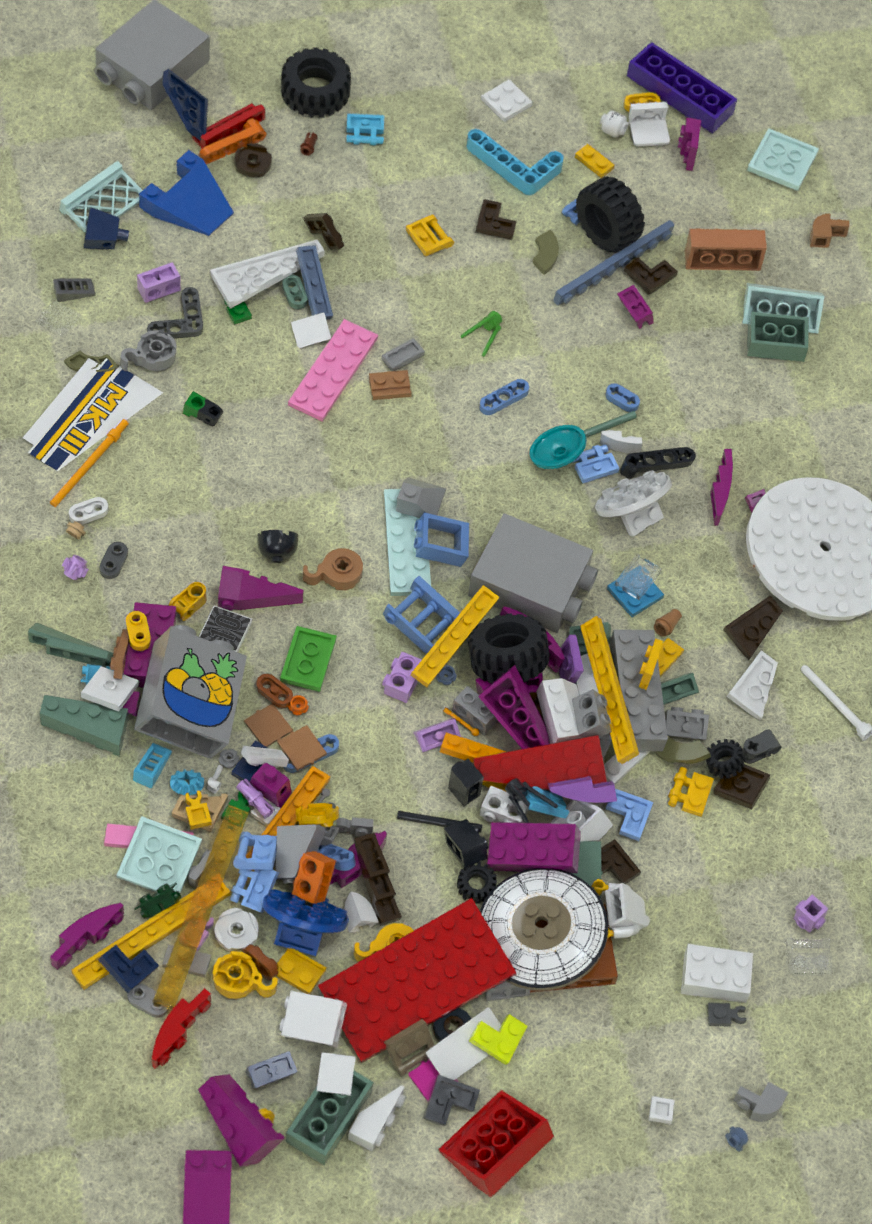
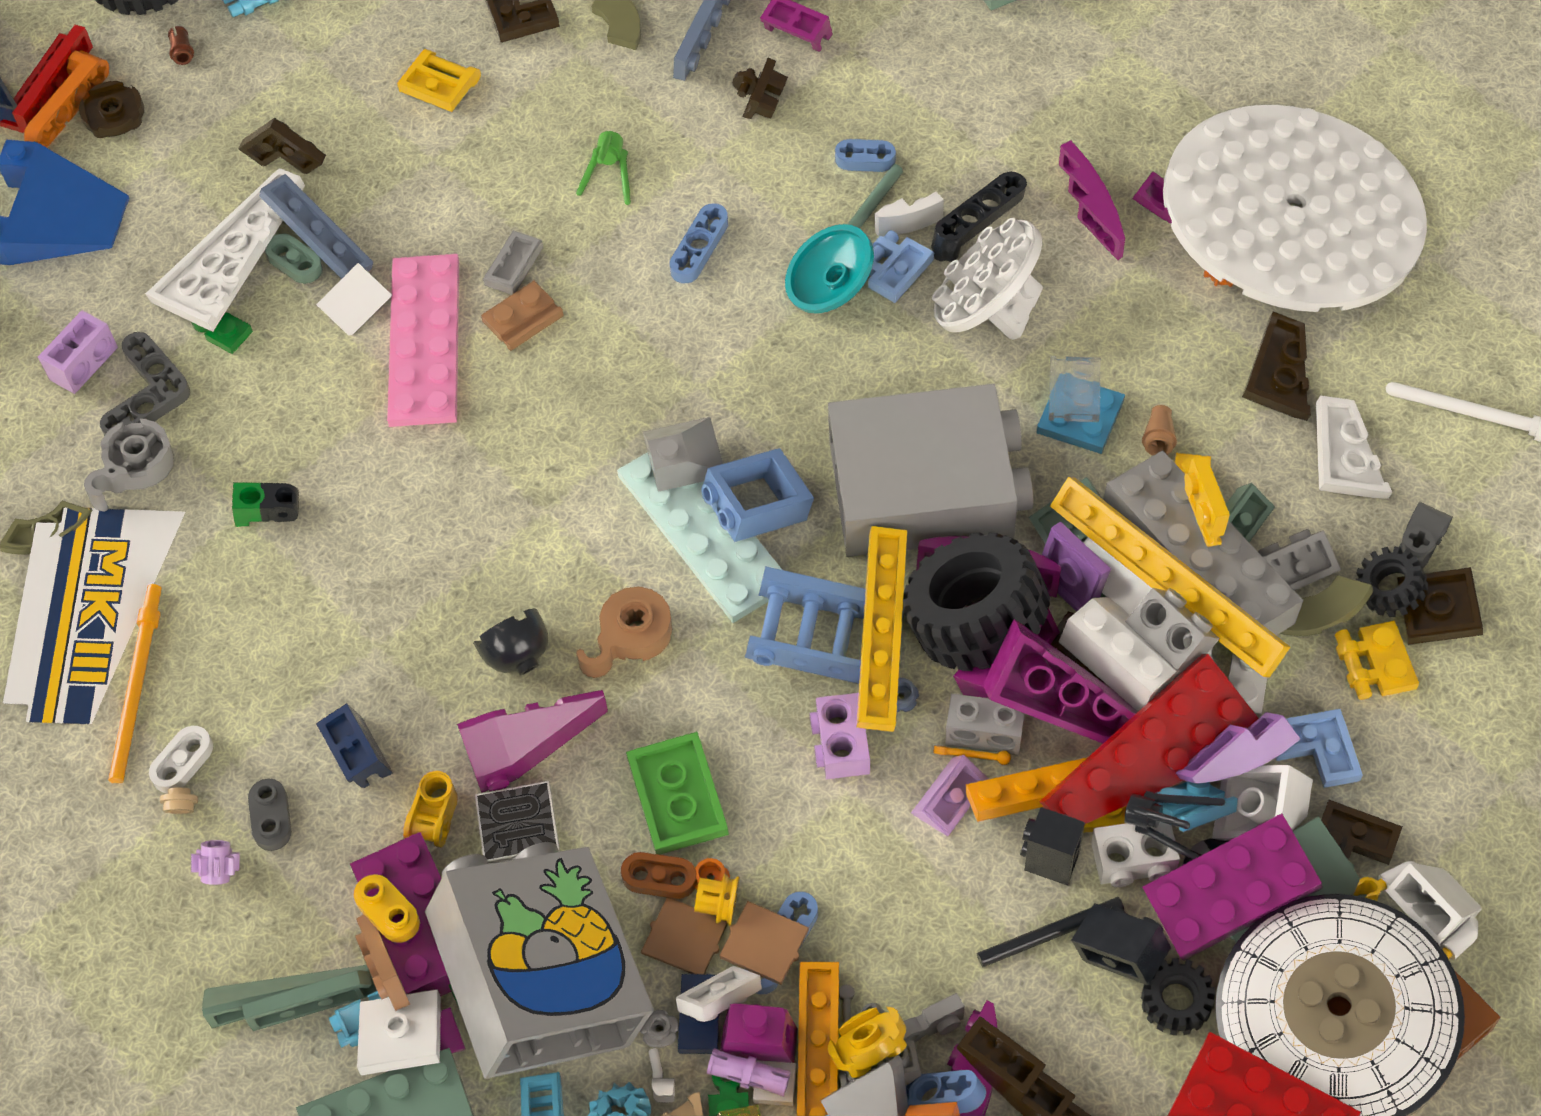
camera: 20 degrees left, 0 degrees up
(171, 550) = (353, 746): none -> dark blue hinge
(294, 715) = (717, 898): none -> yellow piece
(599, 329) = (749, 84): none -> dark brown hips

